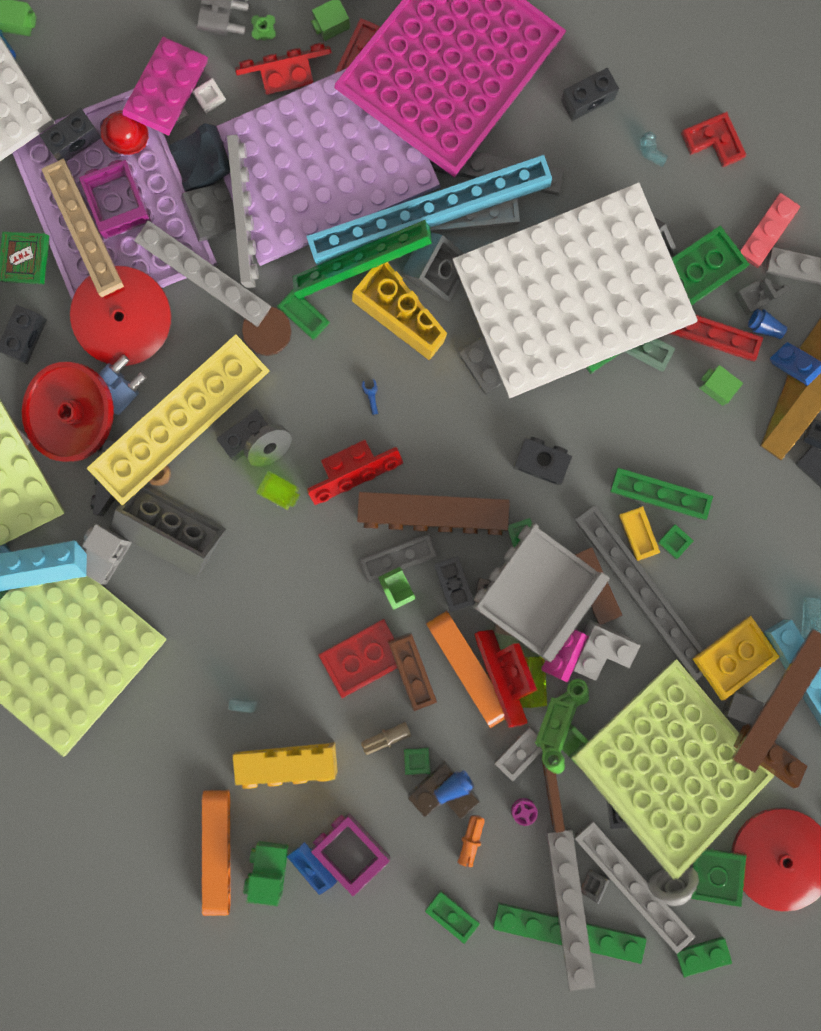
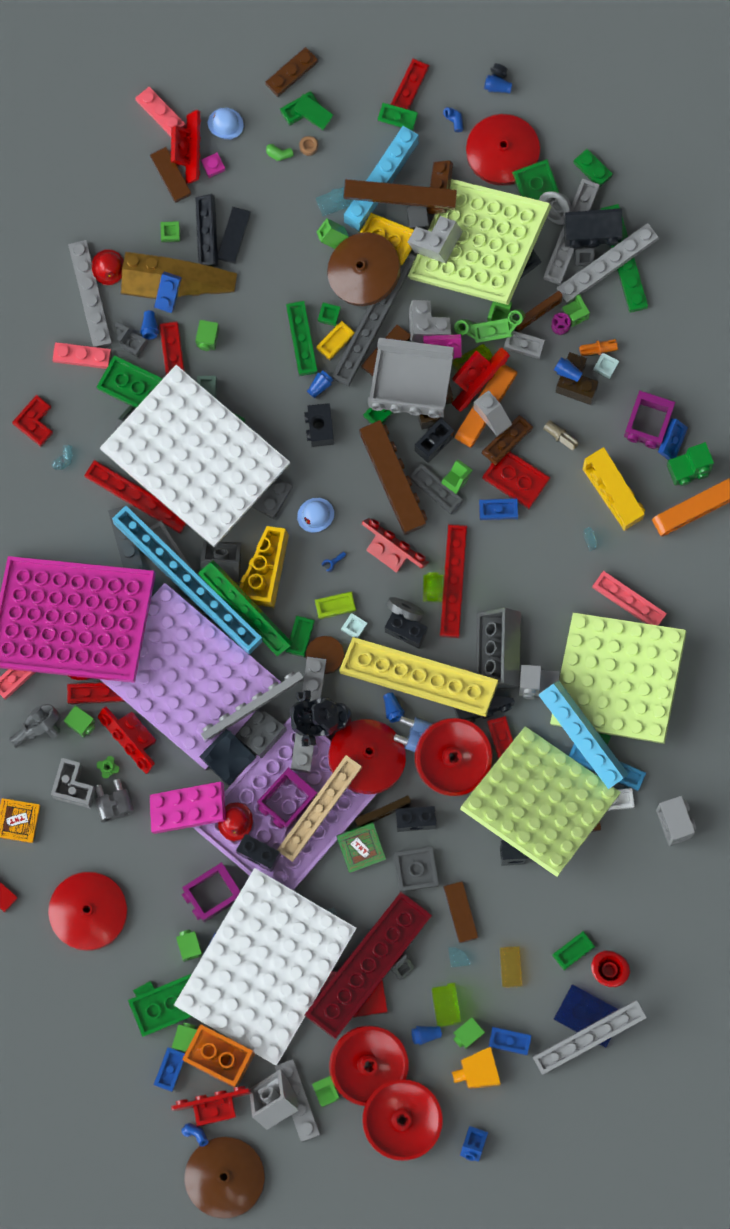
camera: 115 degrees left, 10 degrees down
(50, 302) = (383, 811): none -> dark brown tile
(60, 94) = (188, 897): none -> magenta window
(68, 481) = (500, 734): none -> red tile
(146, 712) = (628, 599): none -> coral plate
(160, 375) = (393, 708): none -> blue cone
(186, 276) = (324, 719): none -> black helmet
(209, 96) = (176, 780): white tile -> none
(277, 521) = (453, 581): none -> red tile
(282, 380) = (354, 626): none -> light aqua tile
(319, 372) = (335, 605): none -> lime tile
(334, 617) = (498, 509): none -> blue plate
(417, 761) = (565, 409): green tile -> none
(438, 404) = (315, 515): none -> light blue hat
(445, 838) = (606, 365): none -> light aqua tile
(448, 668) = (492, 413): none -> light grey slope
(452, 916) = (654, 335): green plate -> none
(531, 839) = (576, 311): none -> bright green panel
(589, 94) = (46, 517): black brick -> none
(593, 487) = (319, 384): none -> blue cone
(601, 186) = (133, 495): none -> red tile
(621, 916) = (593, 228): none -> black slope
(695, 624) = (372, 281): none -> reddish brown dish
(697, 715) = (437, 243): none -> light grey brick
(774, 596) = (331, 233): none -> bright green panel

